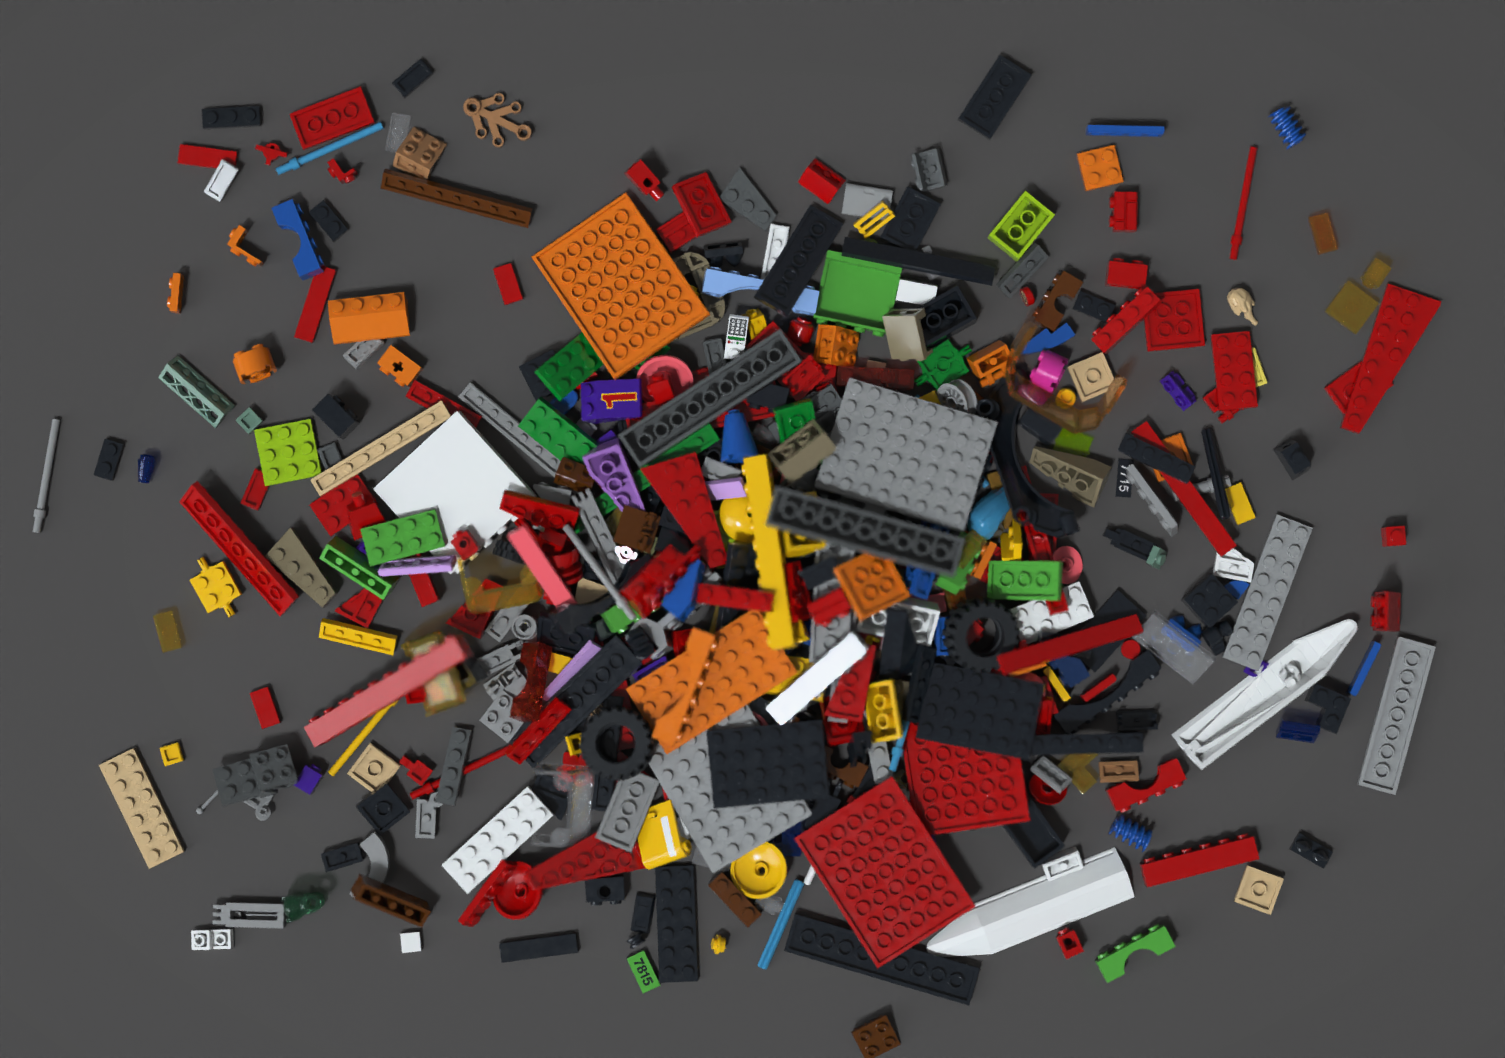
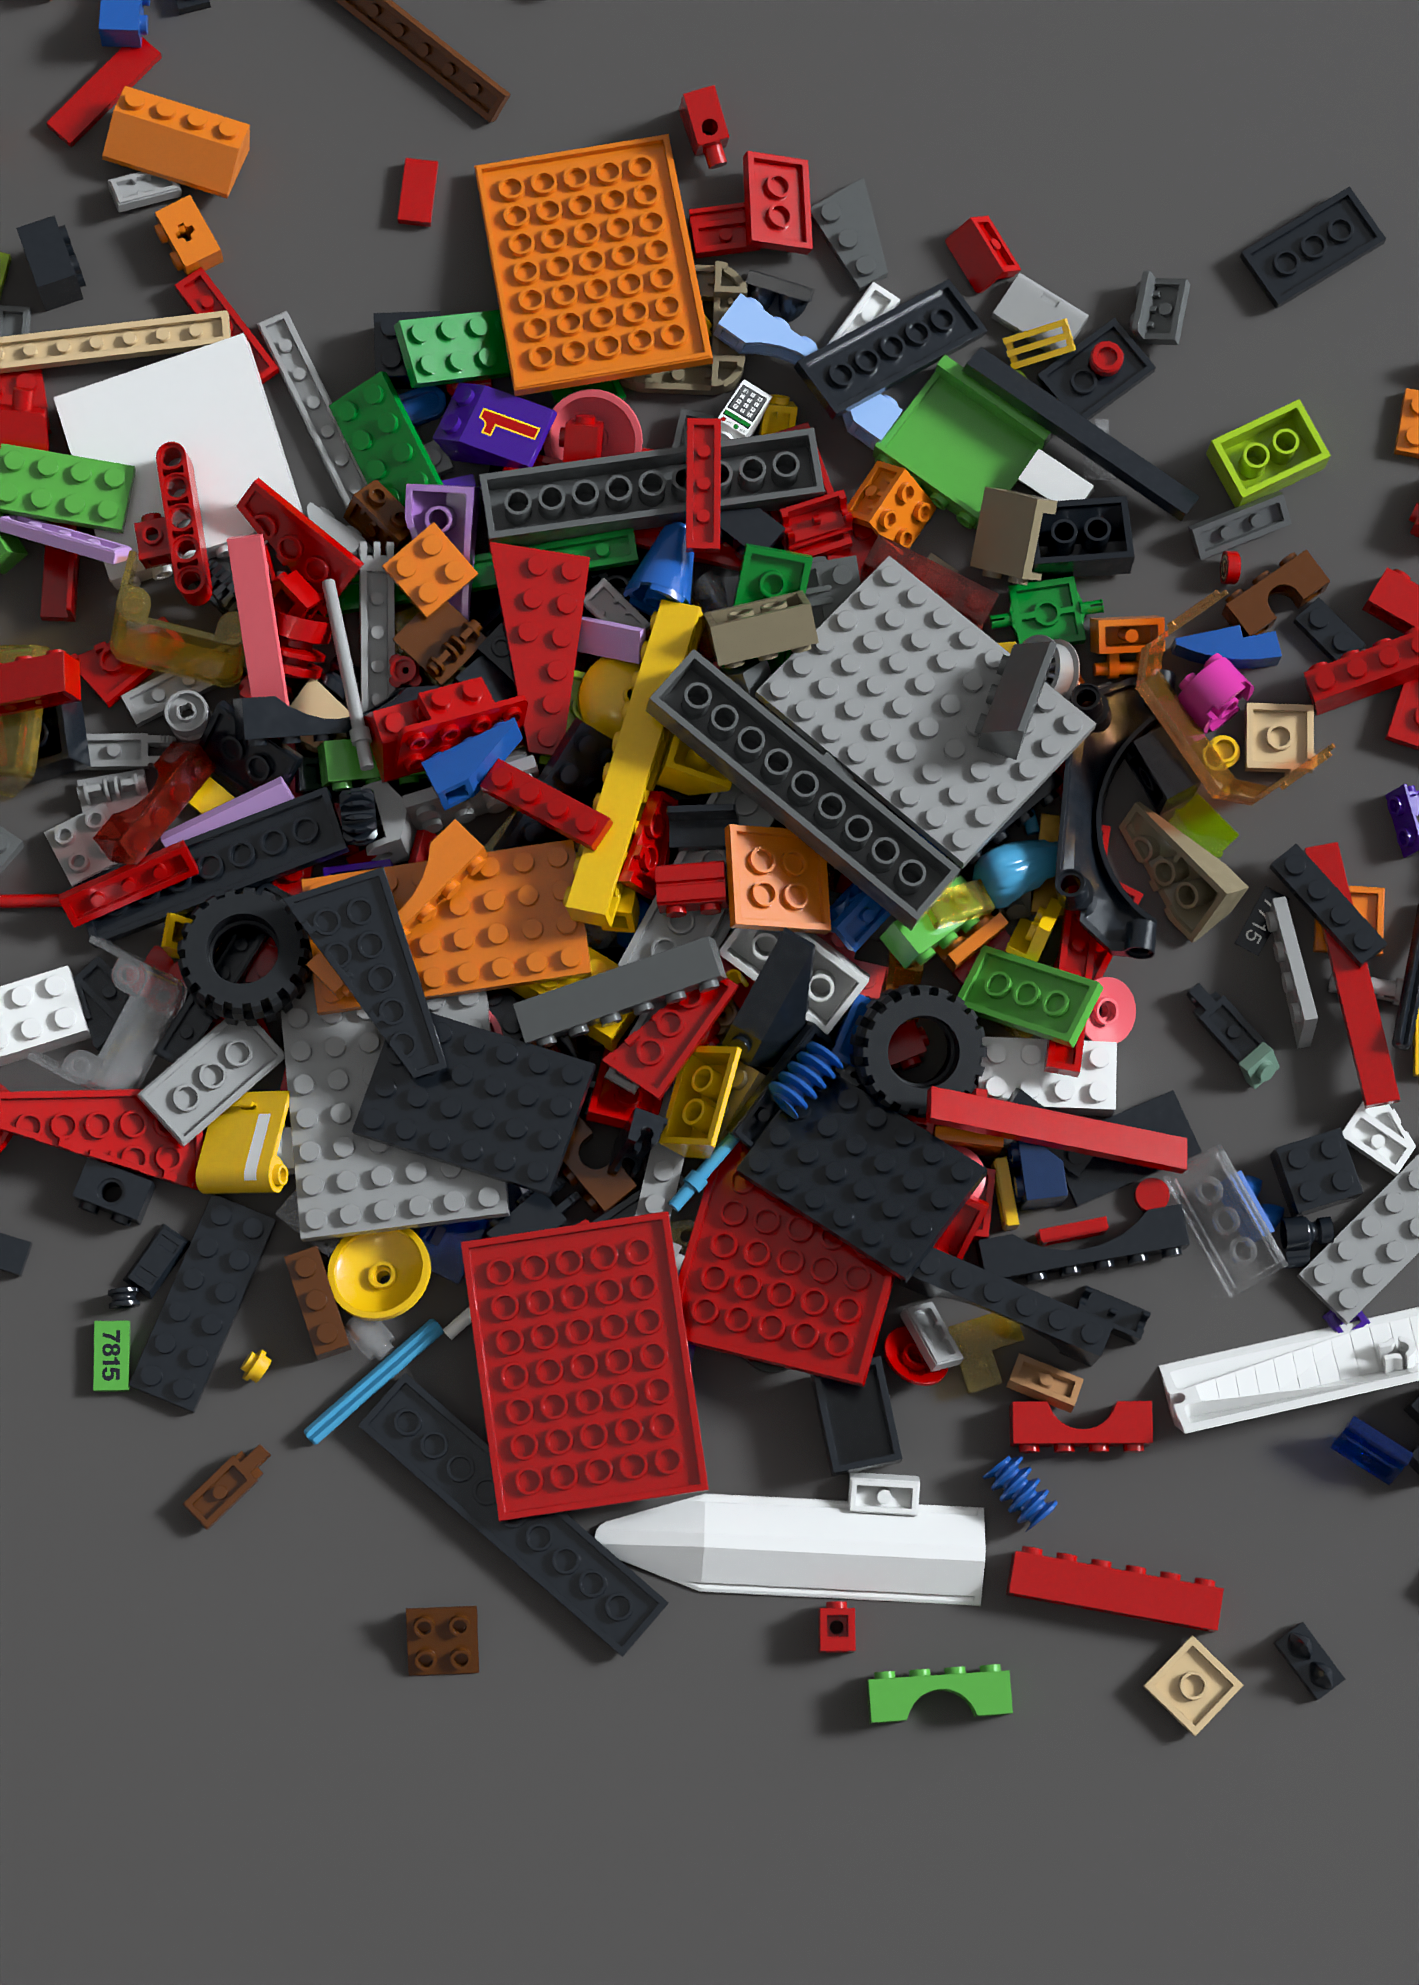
camera: 20 degrees right, 10 degrees down
(484, 535) = (180, 509): none -> red beam
(615, 496) = (430, 570): none -> orange plate
(680, 716) = (367, 947): none -> black wing
(732, 1011) = (226, 1486): none -> reddish brown hinge
(737, 388) = (703, 485): none -> red plate
(800, 331) = (845, 461): red head -> none
(913, 212) = (1106, 358): none -> red tile
(930, 677) = (803, 1077): none -> blue piece
(951, 432) = (1014, 698): none -> dark grey slope
(1236, 588) = (1371, 1175): blue tile -> none

